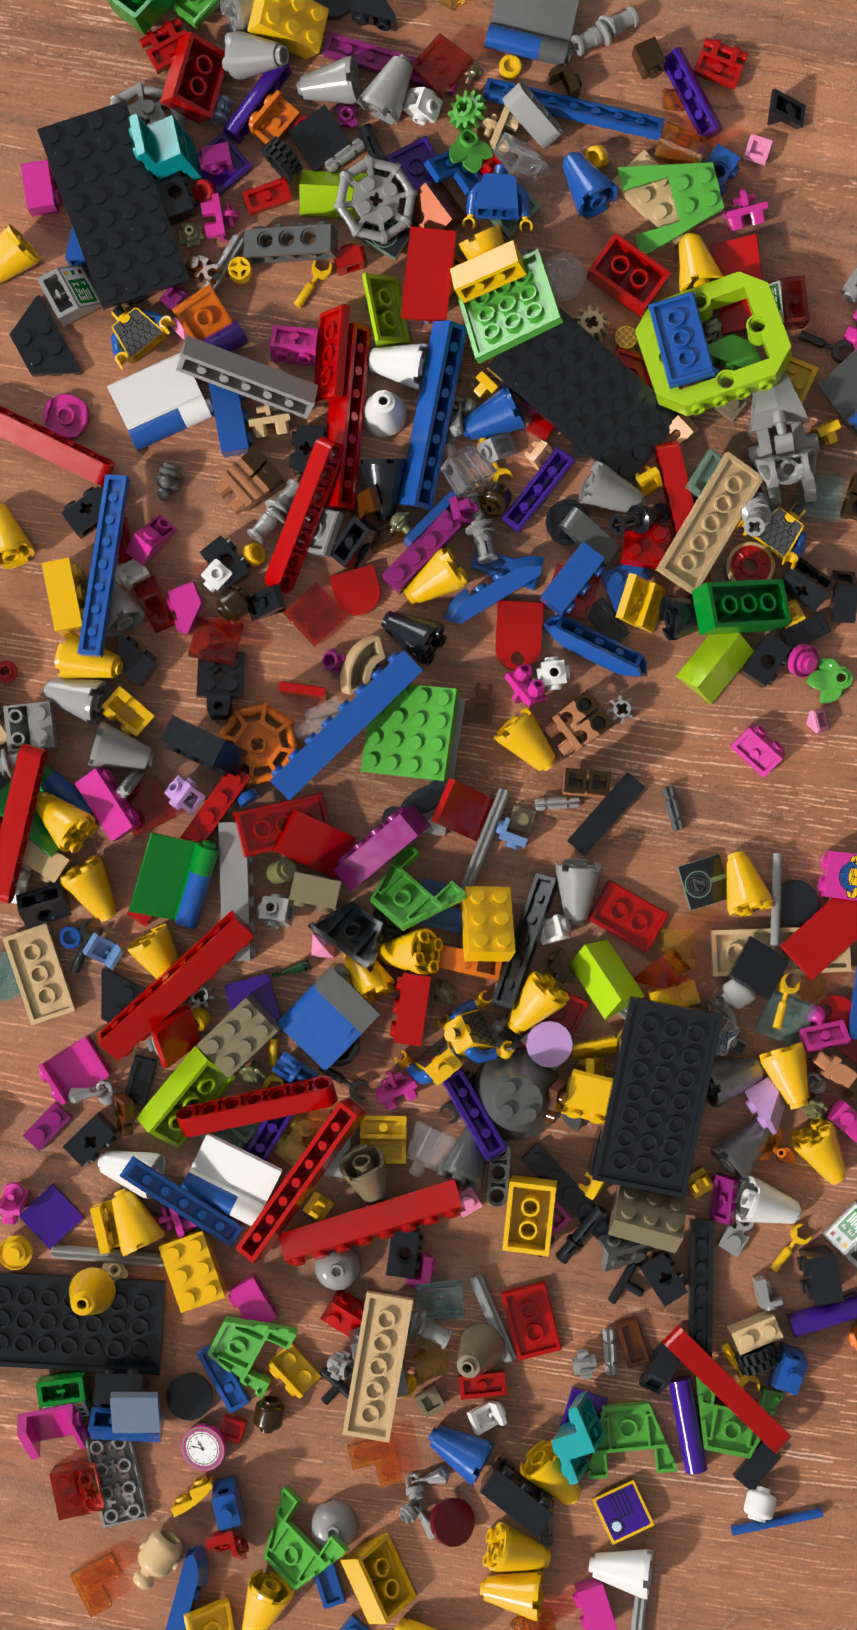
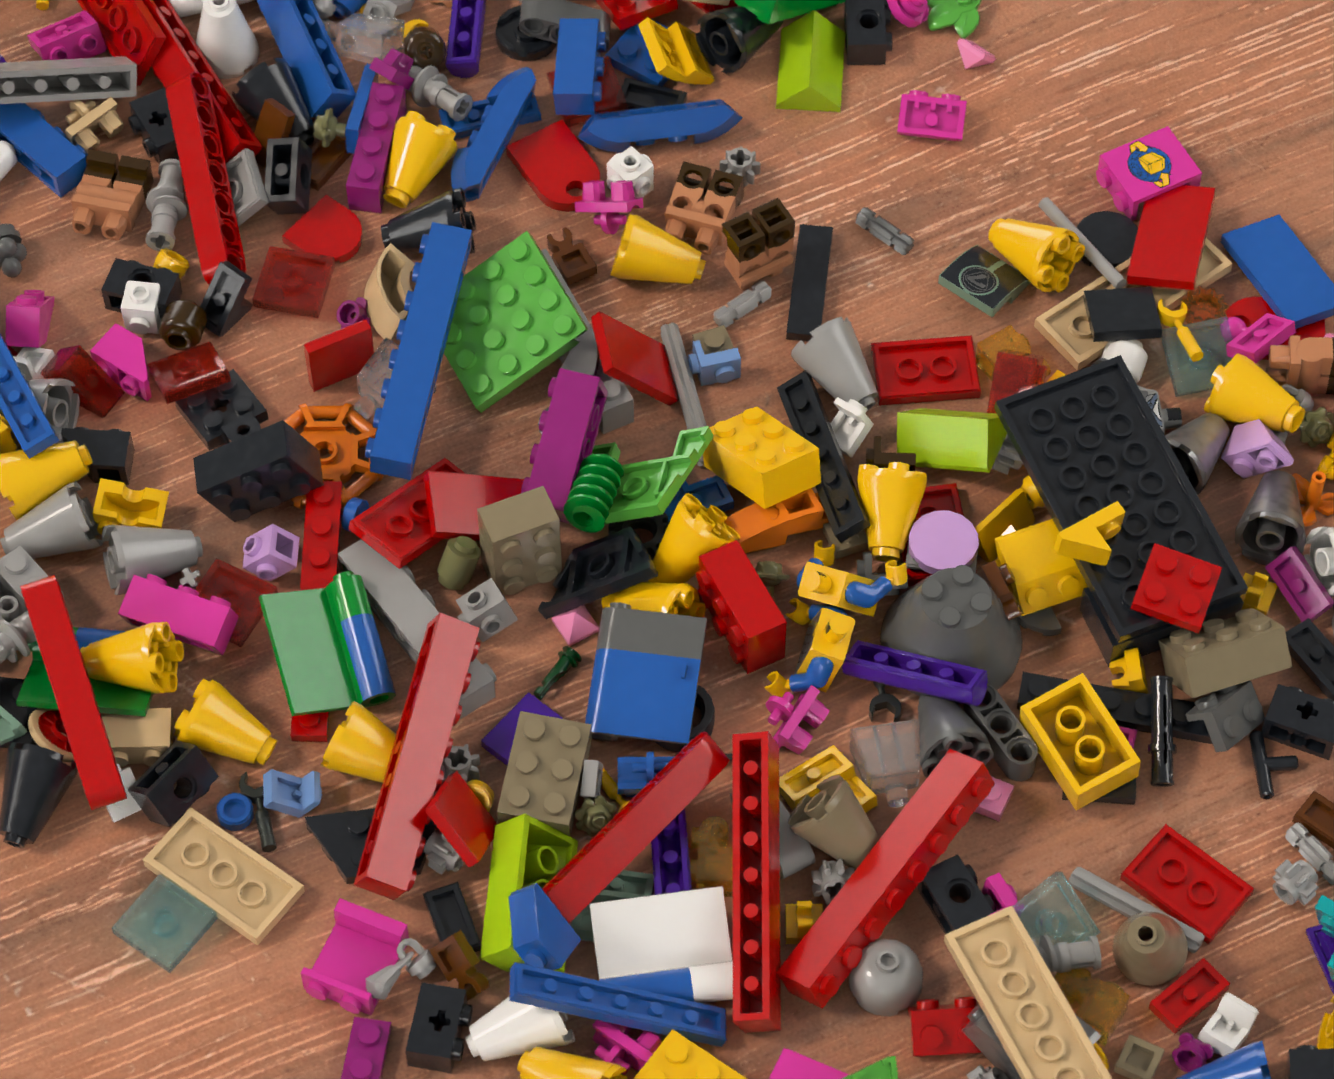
camera: 30 degrees left, 30 degrees down
(169, 1135) = (539, 929): none -> blue slope
(262, 1054) = (591, 779): none -> light grey tile
(346, 1199) = (830, 879): none -> light grey gear
(373, 891) = (593, 492): none -> green piece
(458, 1417) = (1185, 1058): none -> magenta plate
(614, 1116) = (1087, 537): none -> yellow slope
(643, 1175) = (1176, 588): none -> red plate

